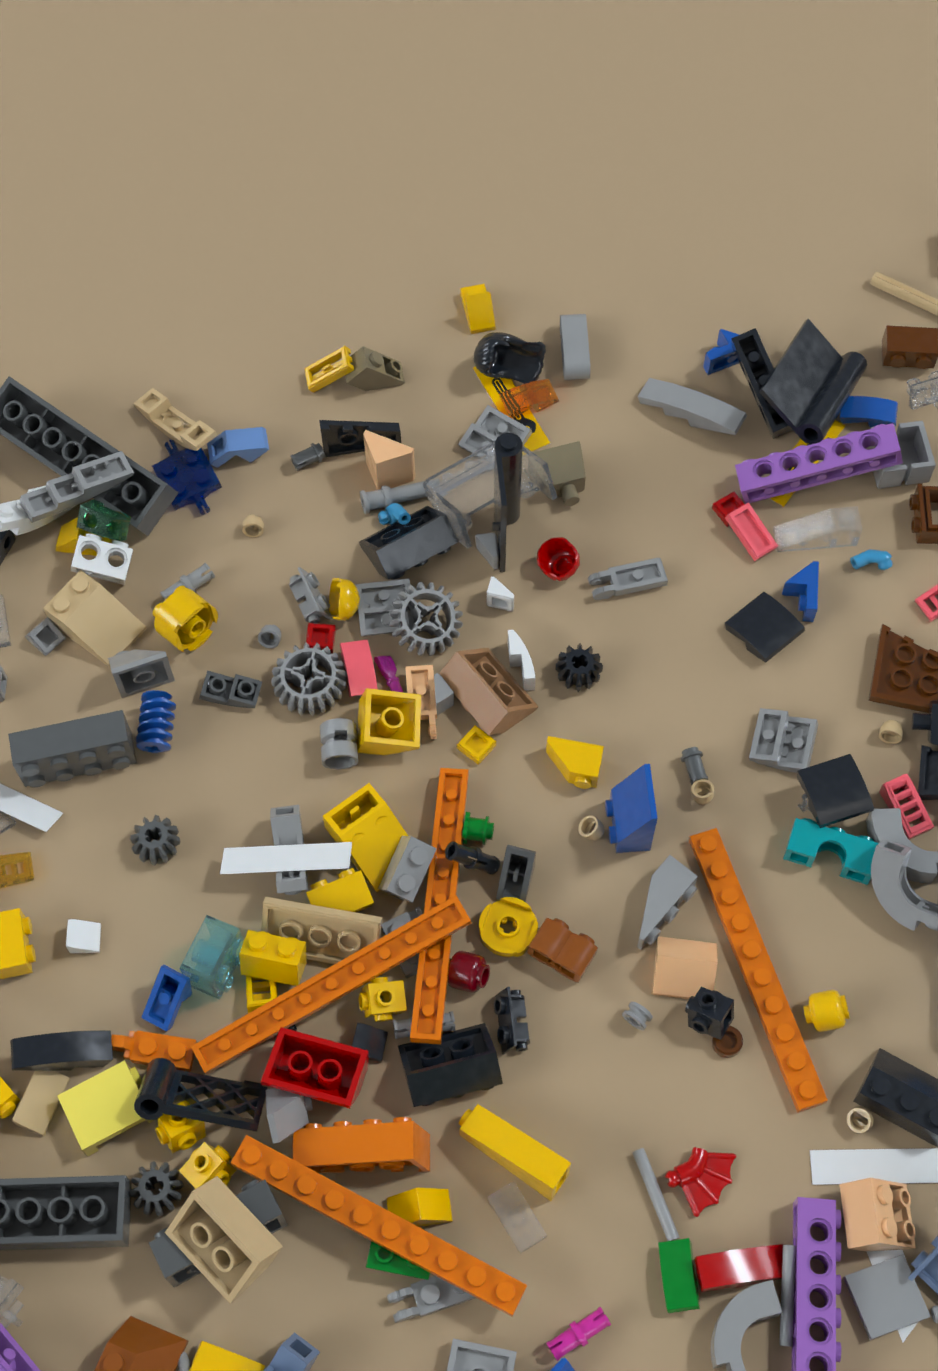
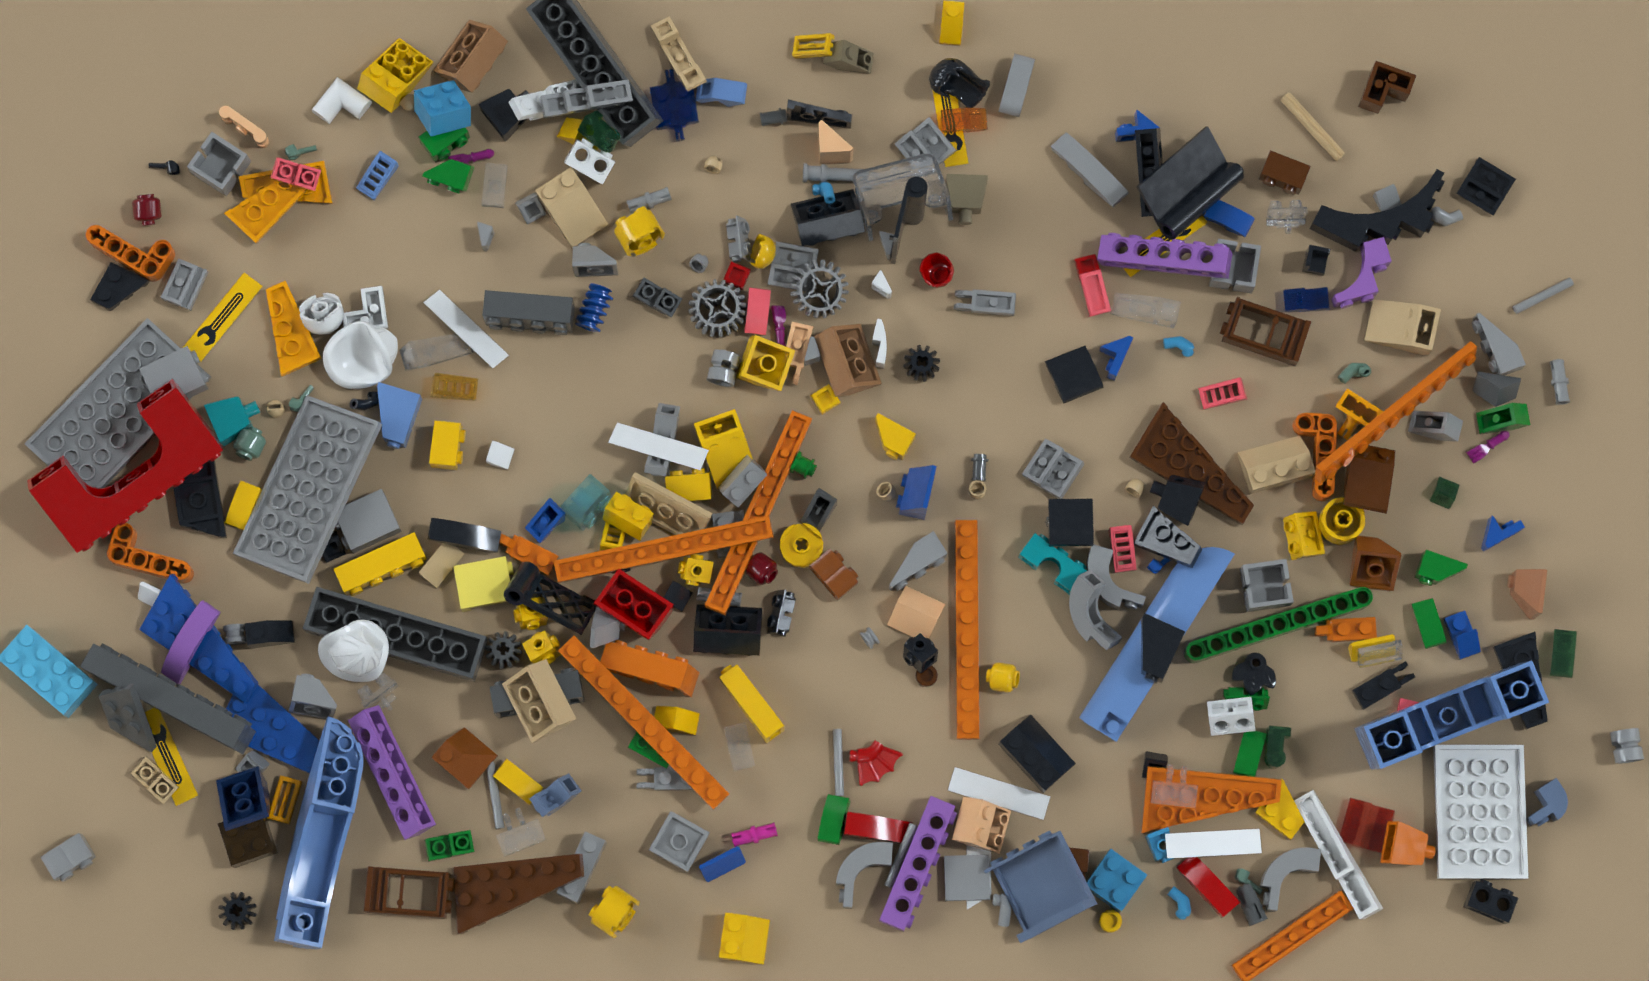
camera: 15 degrees right, 15 degrees up
(155, 849) = (570, 407): dark grey gear -> none
(460, 854) = (791, 488): black pin -> none
(857, 1124) = (995, 761): tan hinge -> none

